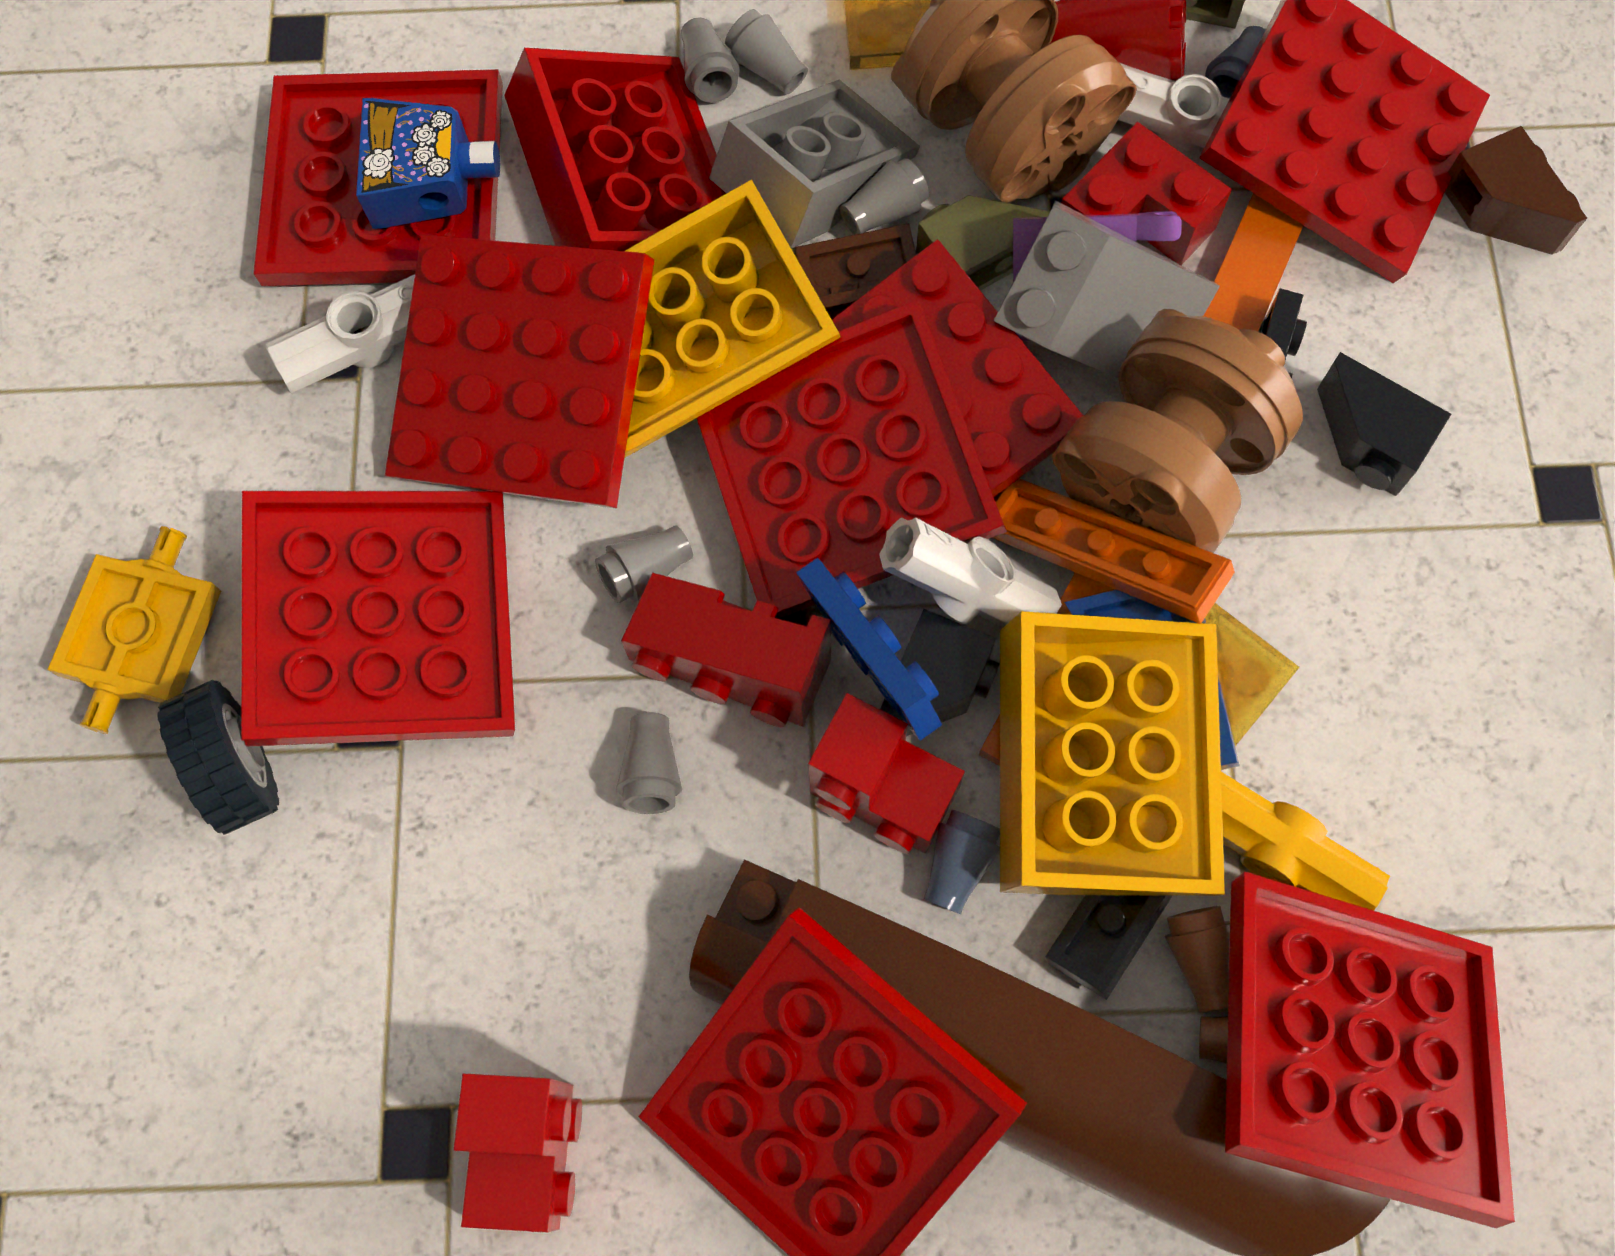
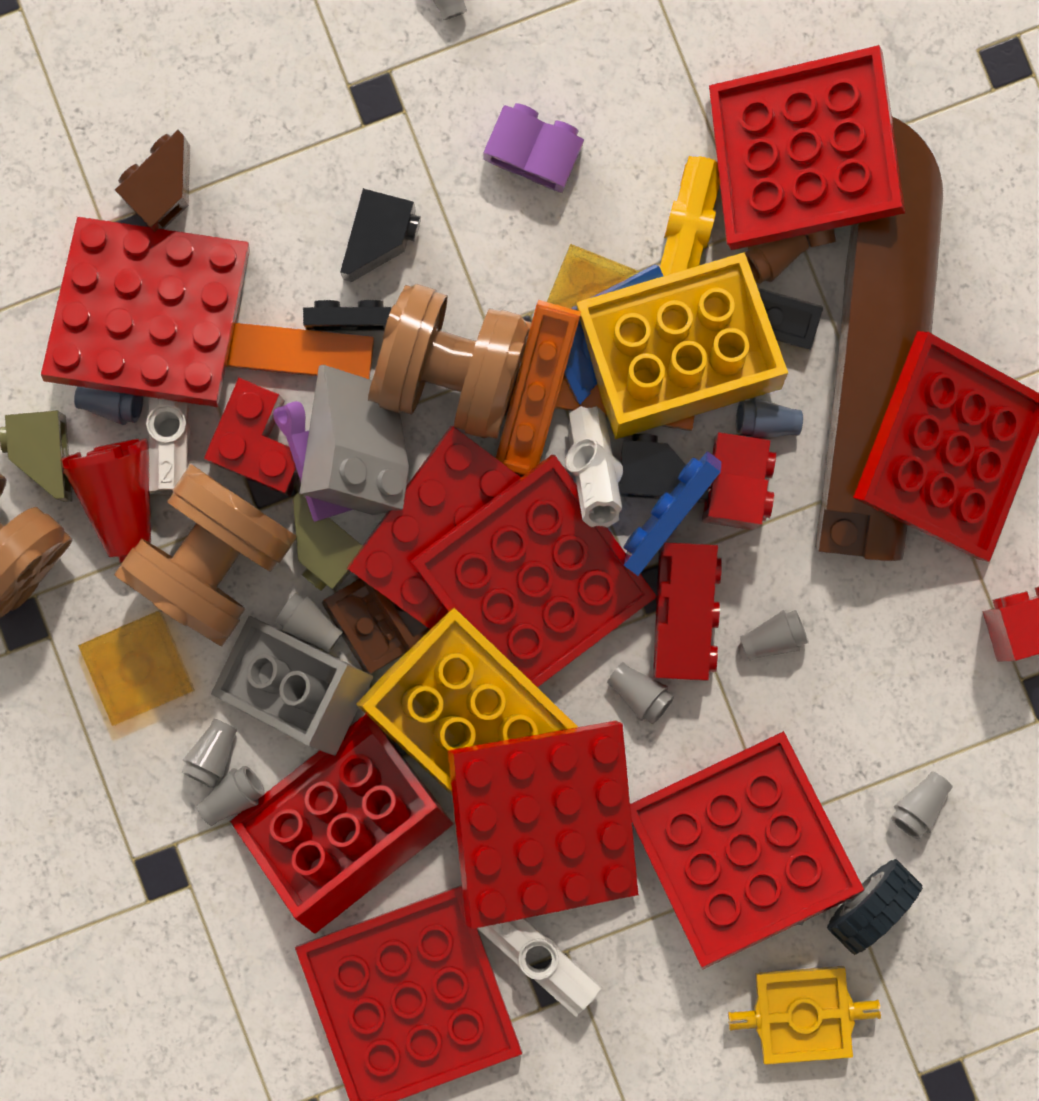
camera: 110 degrees left, 15 degrees up
(333, 886) = (921, 807): none -> light grey cone
(417, 162) = (403, 964): torso -> none
(1454, 665) = (533, 147): none -> medium lavender brick

